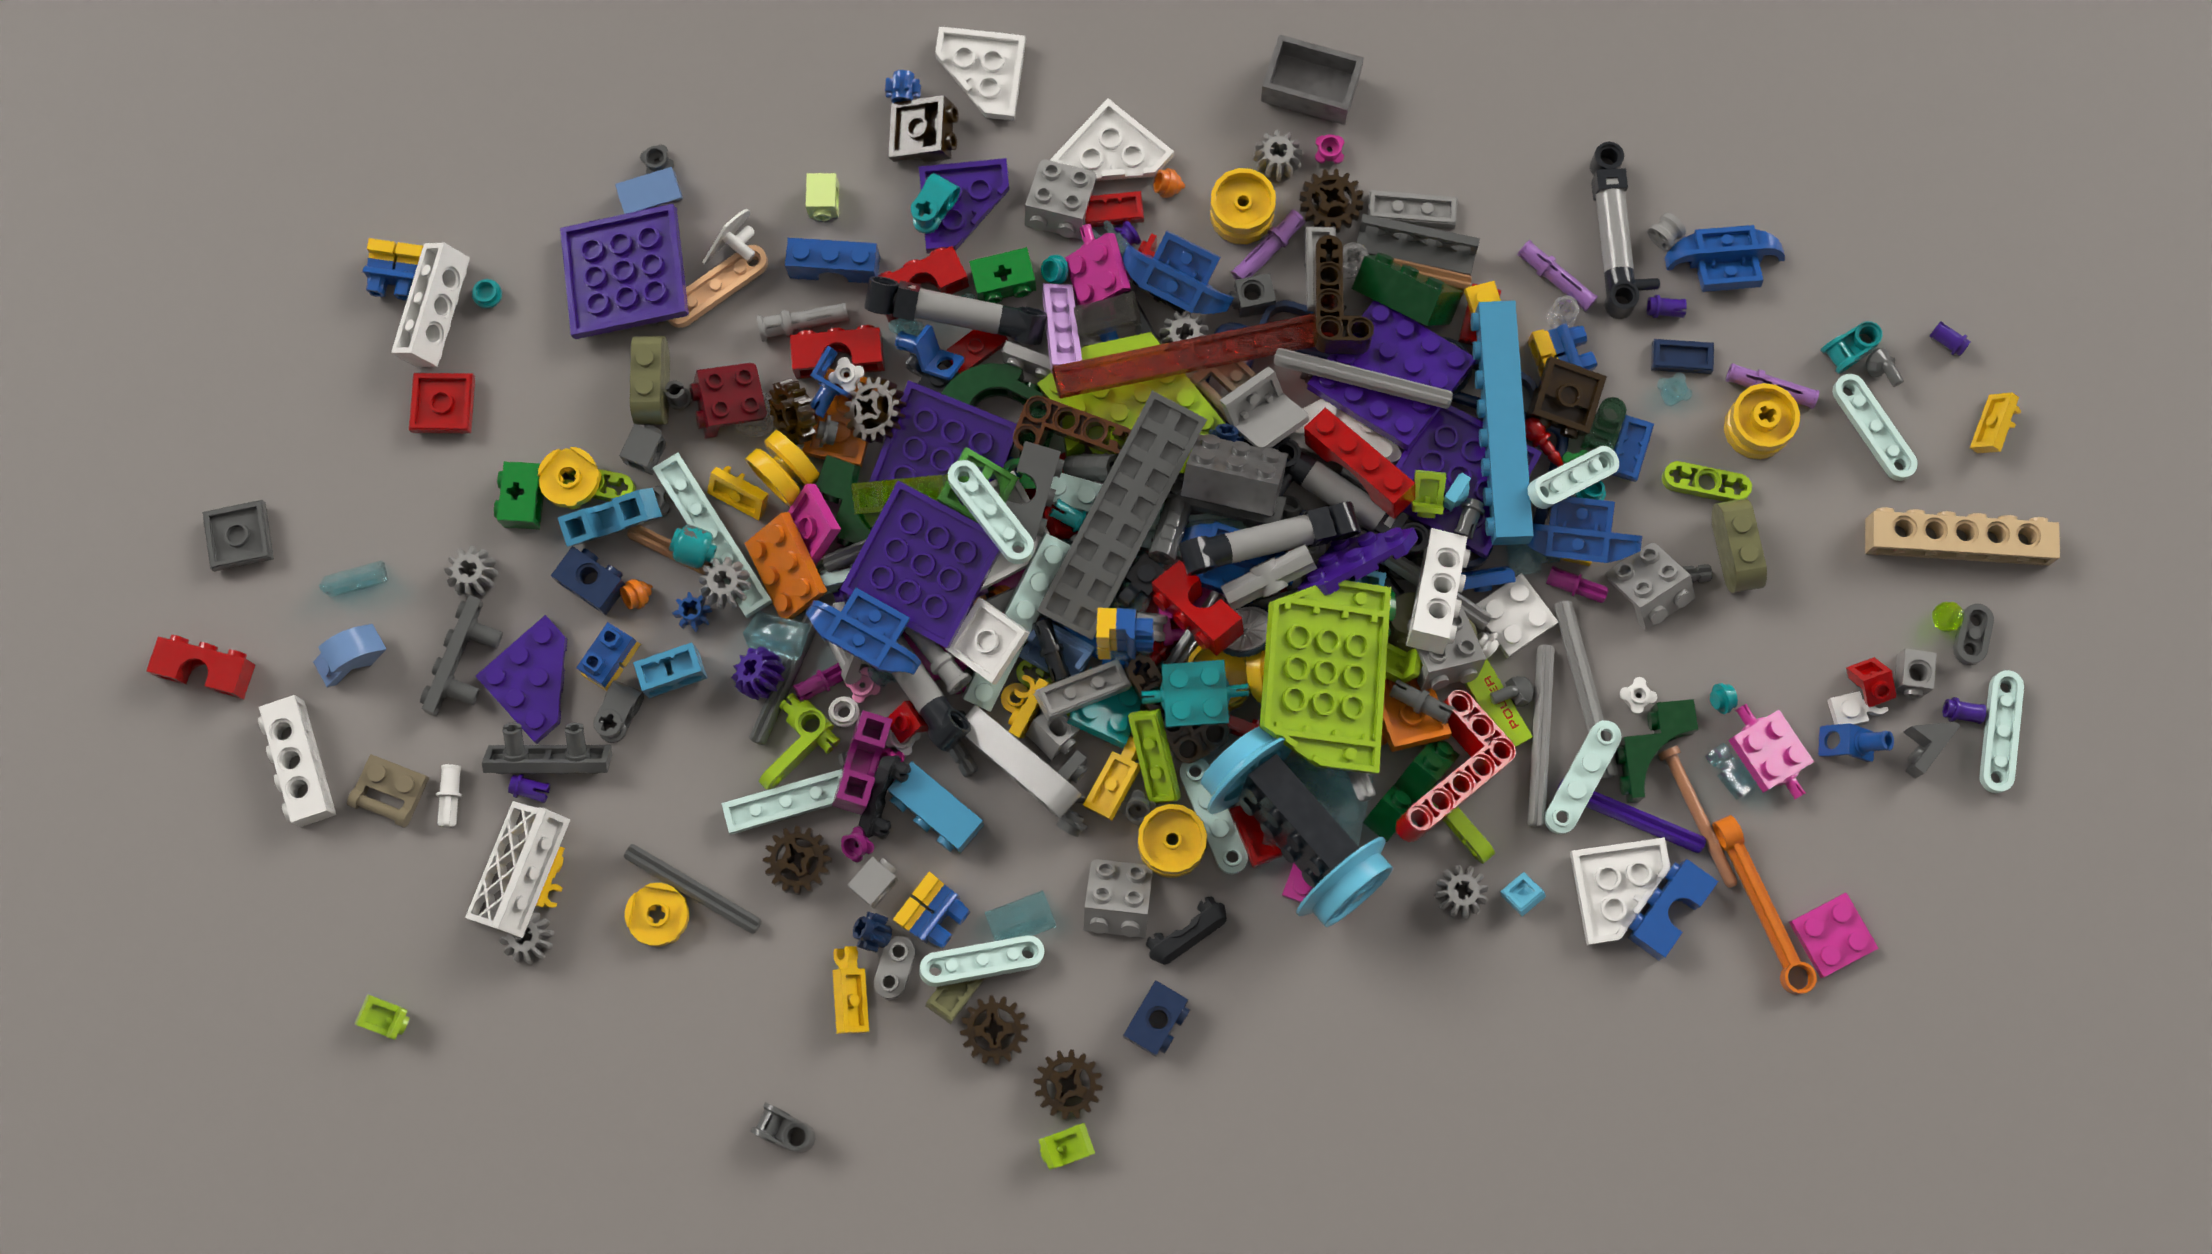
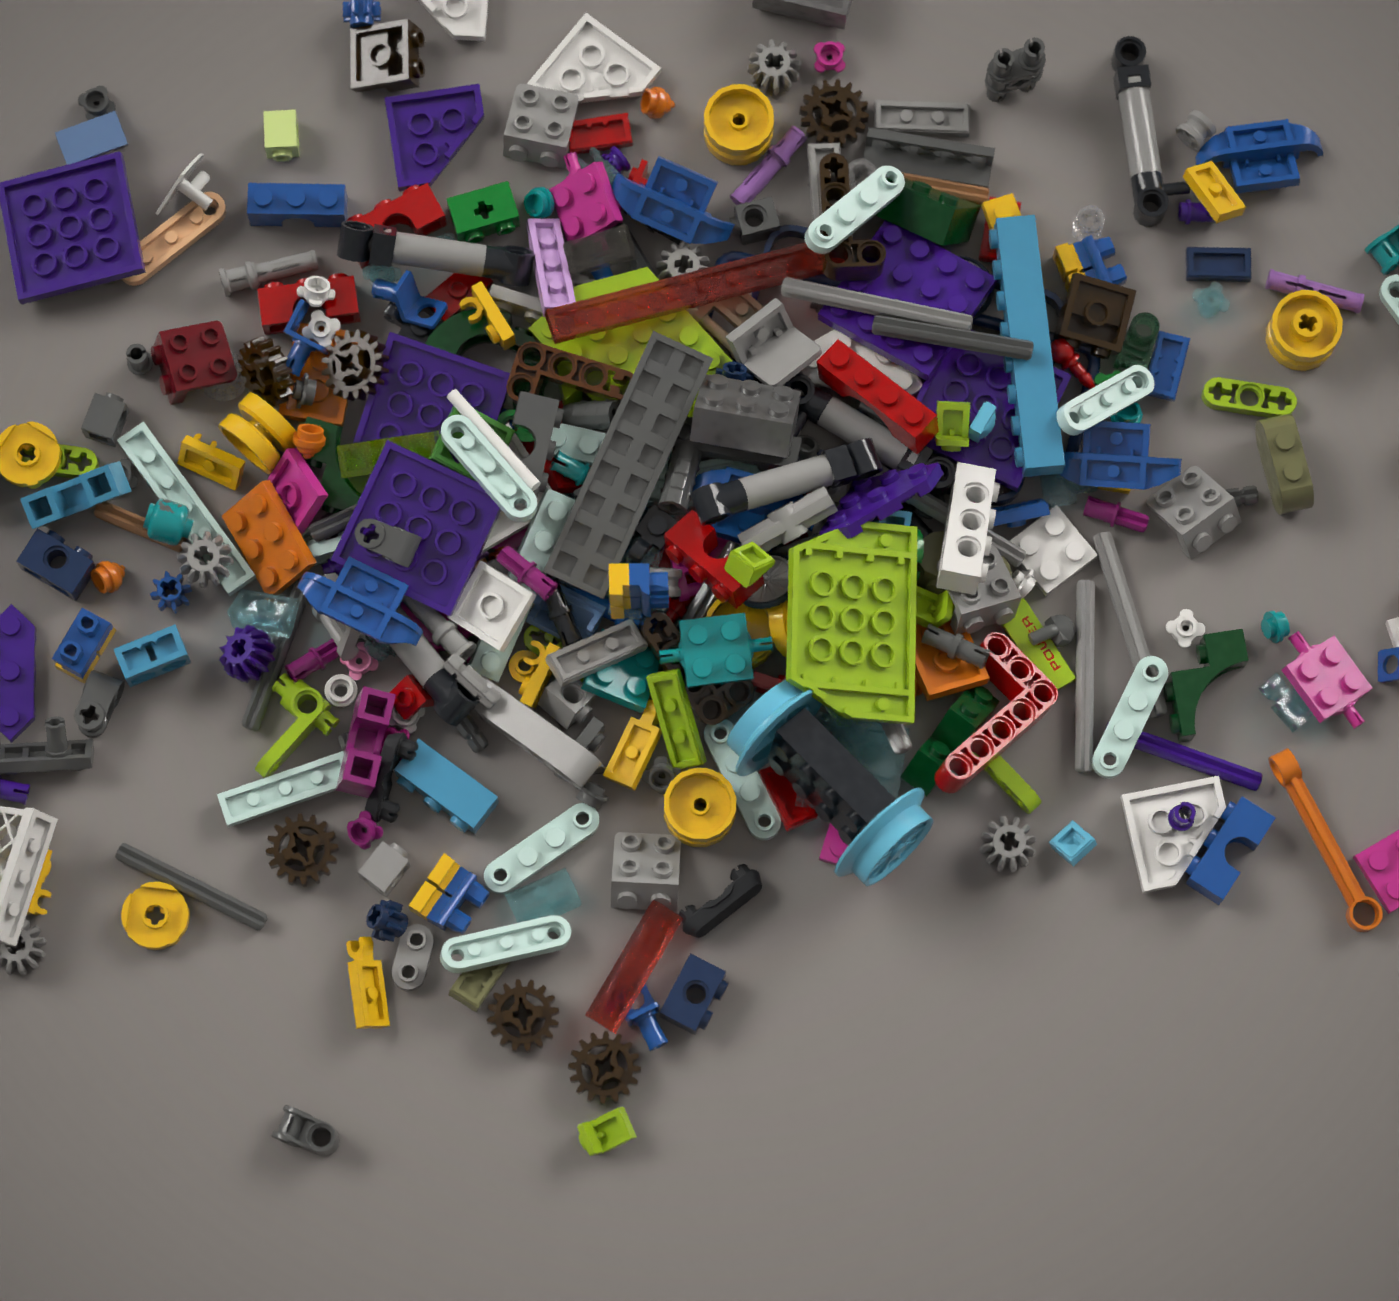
camera: 10 degrees left, 0 degrees up
(648, 380) = (107, 345): olive brick -> none
(827, 476) = (309, 439): none -> orange plate
(843, 339) = (316, 291): none -> white plate
(897, 576) = (392, 543): none -> dark grey piece
(934, 199) = (405, 133): teal piece -> none
(964, 710) = (471, 680): none -> light grey axle
(974, 457) = (468, 411): none -> white bar
(1009, 381) = (497, 327): none -> yellow plate
(1021, 611) = (526, 572): none -> magenta axle
(1021, 871) = (541, 848): none -> light aqua plate
(1101, 989) = (634, 966): none -> clear red plate
(1108, 1036) = (647, 1022): none -> blue bracket
(1229, 614) = (748, 563): none -> lime slope
(1346, 287) = (854, 209): none -> light aqua plate
(1433, 411) = (952, 337): none -> dark grey axle
(1469, 517) = (997, 449): dark grey pin -> none
(1502, 166) = (1015, 69): none -> dark grey pin
(1557, 275) = (1080, 183): medium lavender pin -> none
(1624, 880) = (1179, 823): none -> dark purple pin
(1682, 288) = (1214, 191): none -> yellow plate
(1698, 814) = (1222, 691): nougat bar -> none

